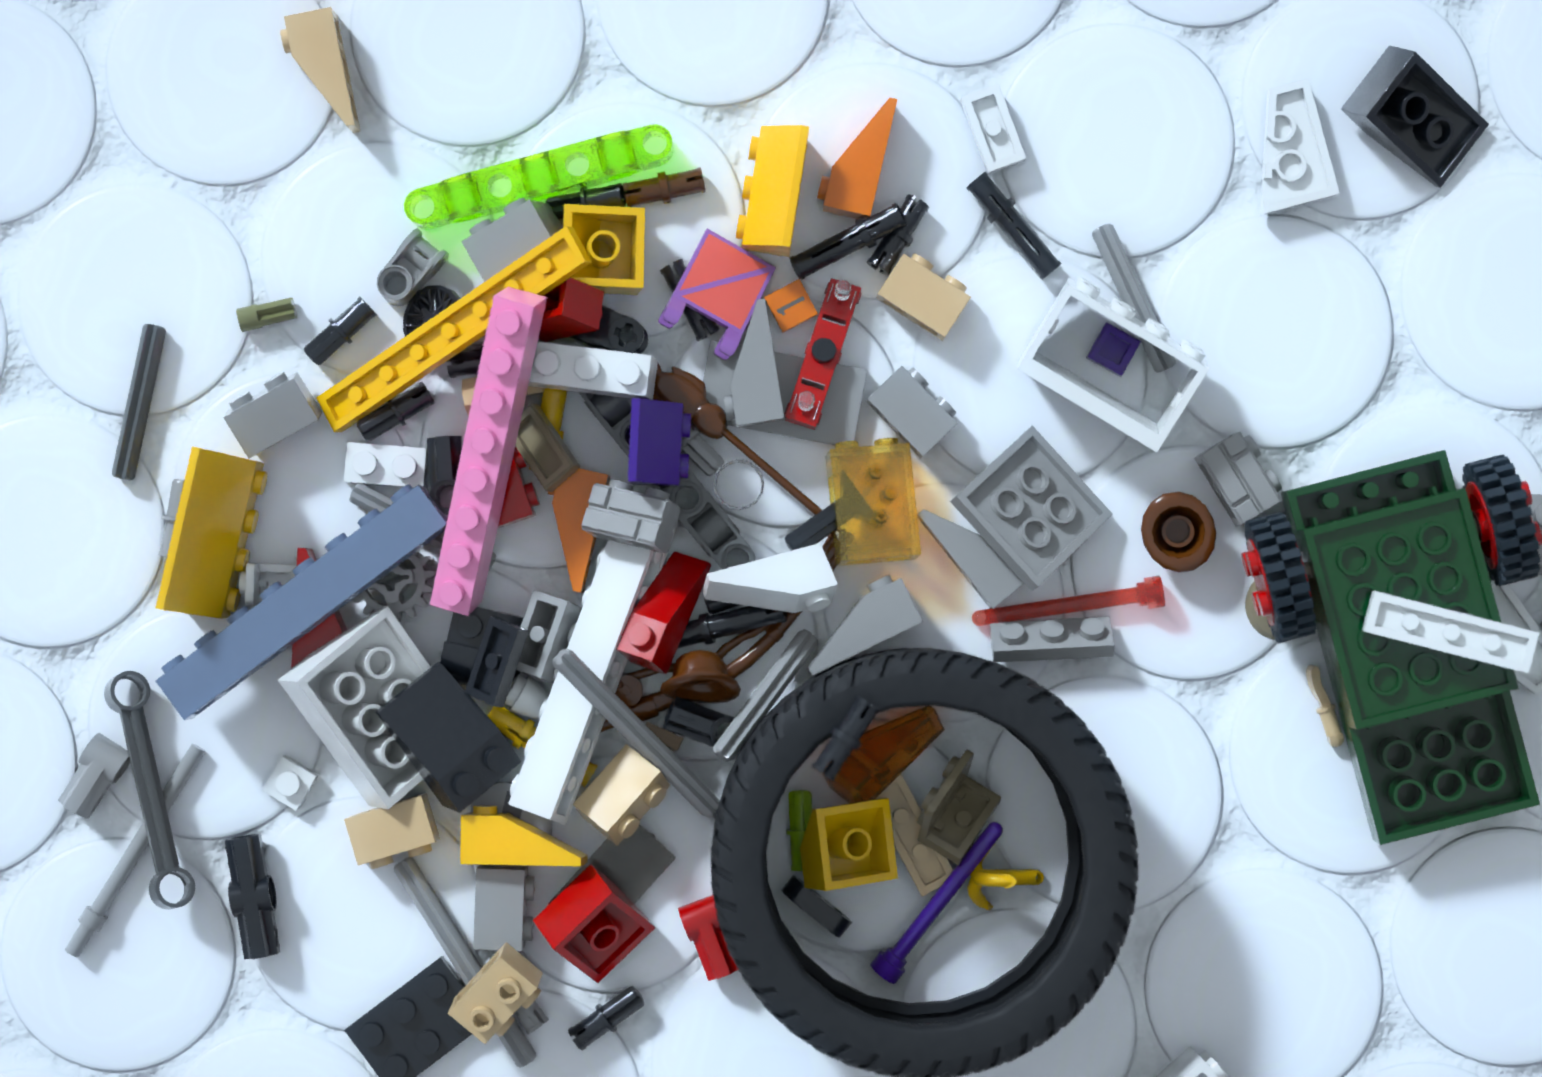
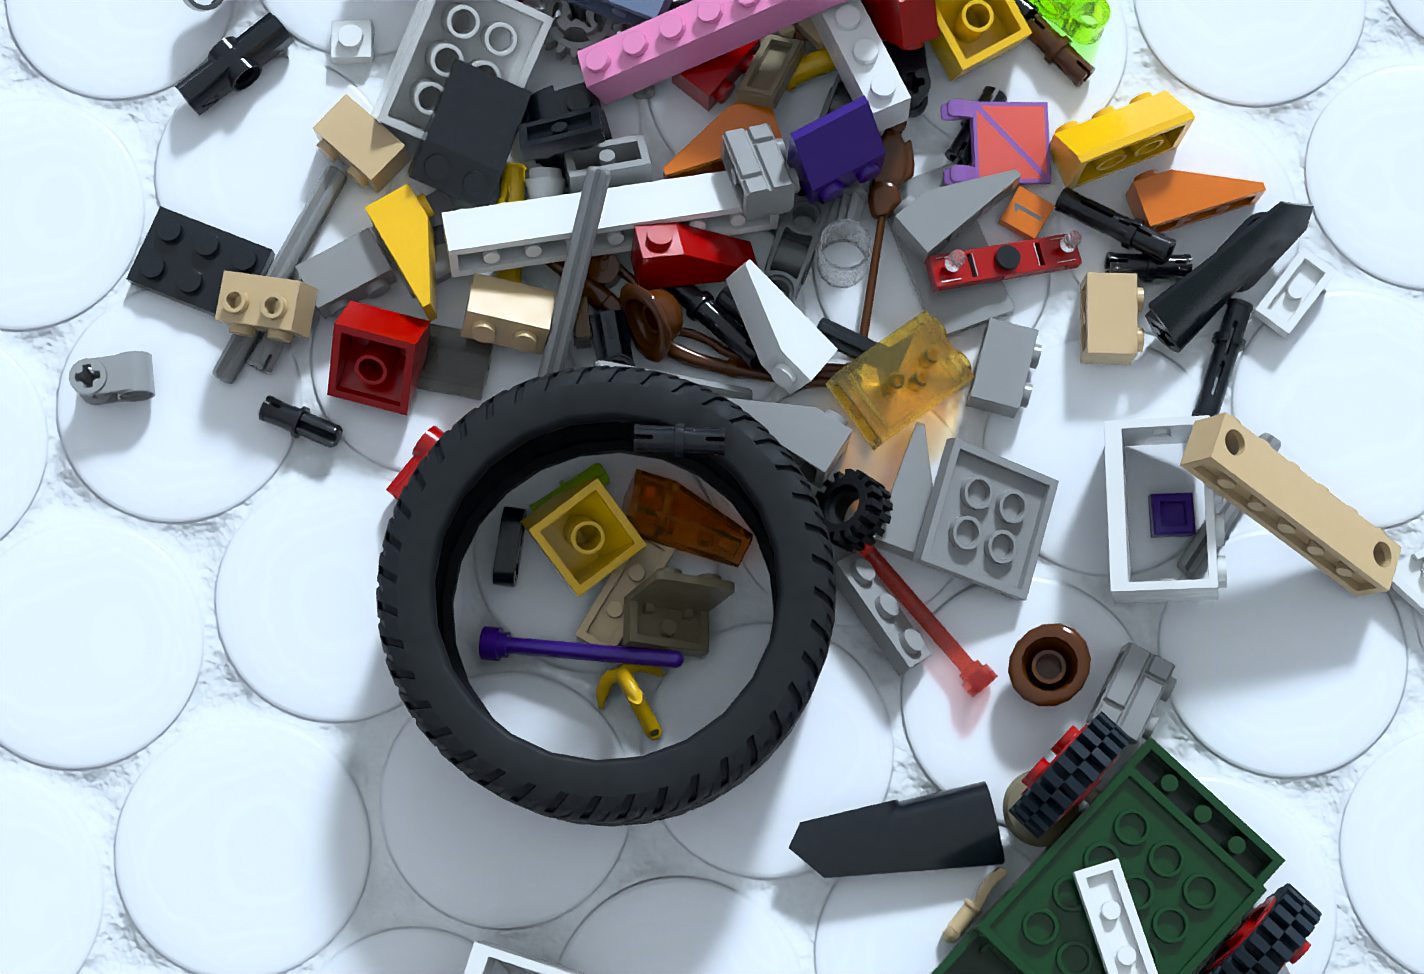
camera: 60 degrees right, 10 degrees down
(944, 166) = (1234, 268): none -> black panel
(970, 599) = (868, 516): none -> black tyre
(1175, 261) = (1290, 504): none -> tan piece
(1240, 730) = (904, 836): none -> black panel

